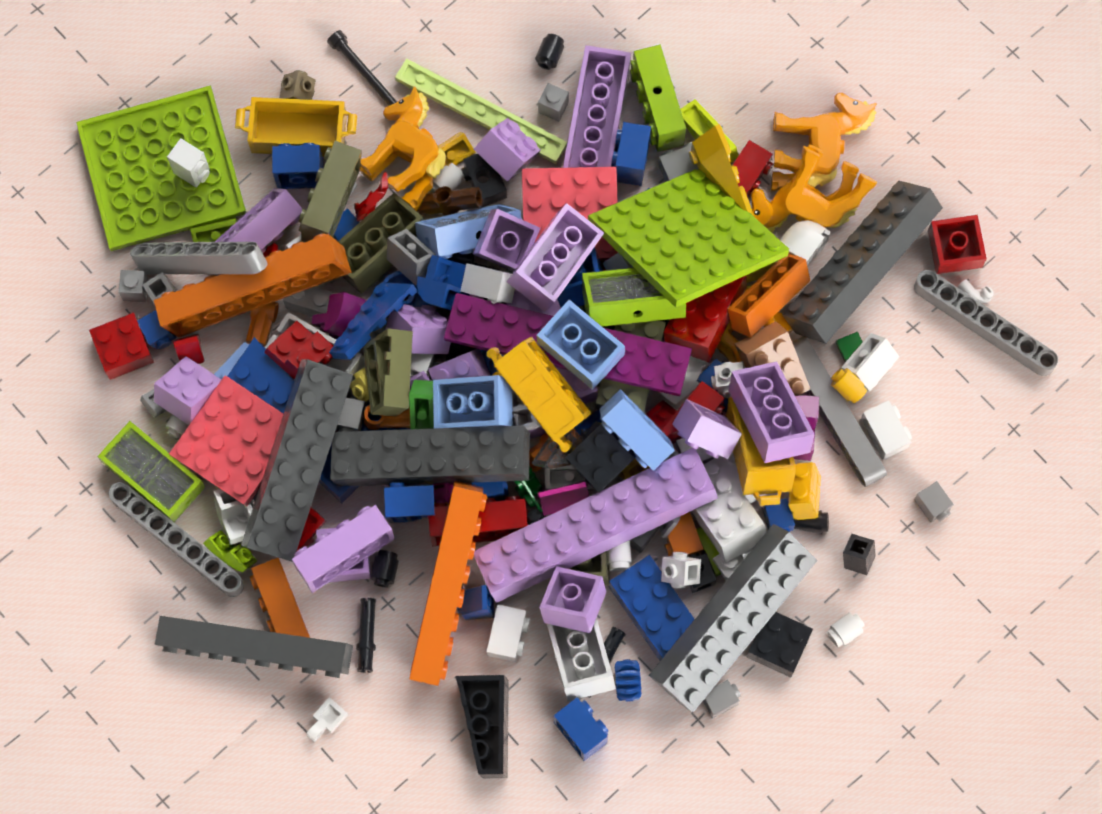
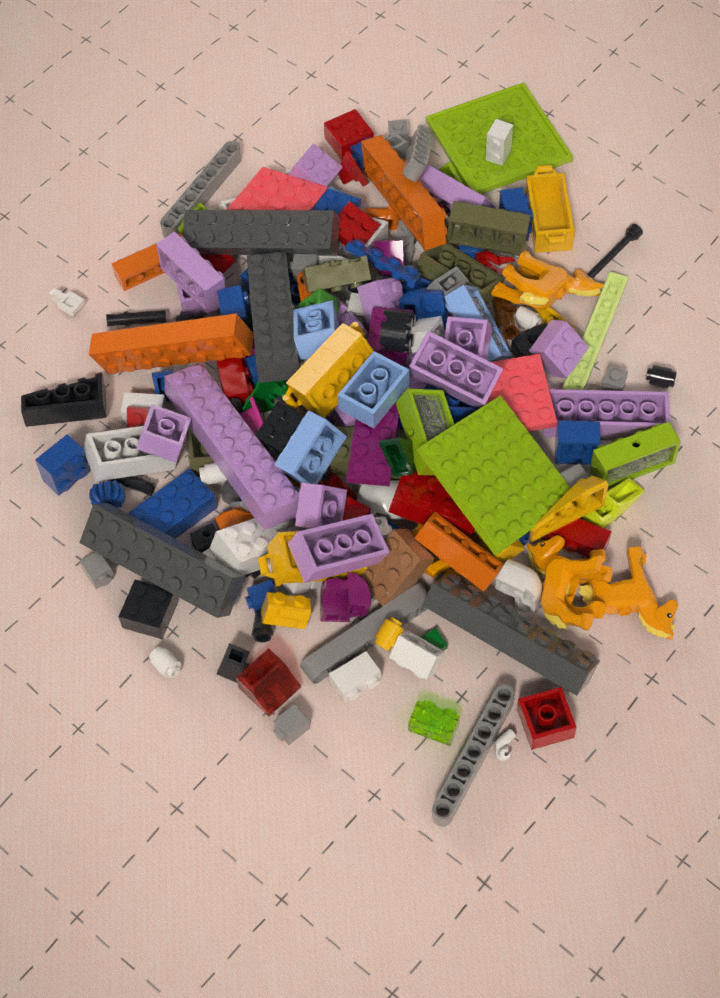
camera: 85 degrees right, 15 degrees down
(151, 471) = (254, 152): clear brick -> none
(254, 645) = (117, 242): dark grey brick -> none
(297, 86) = (576, 206): dark tan brick -> none
(504, 307) = (396, 331): none -> black brick
(529, 638) = (136, 416): none -> red plate
(662, 331) = (399, 455): none -> dark green slope
(680, 570) = (199, 514): white brick -> none
(884, 520) = (268, 682): none -> clear red slope
(946, 356) = (434, 722): none -> clear neon green brick

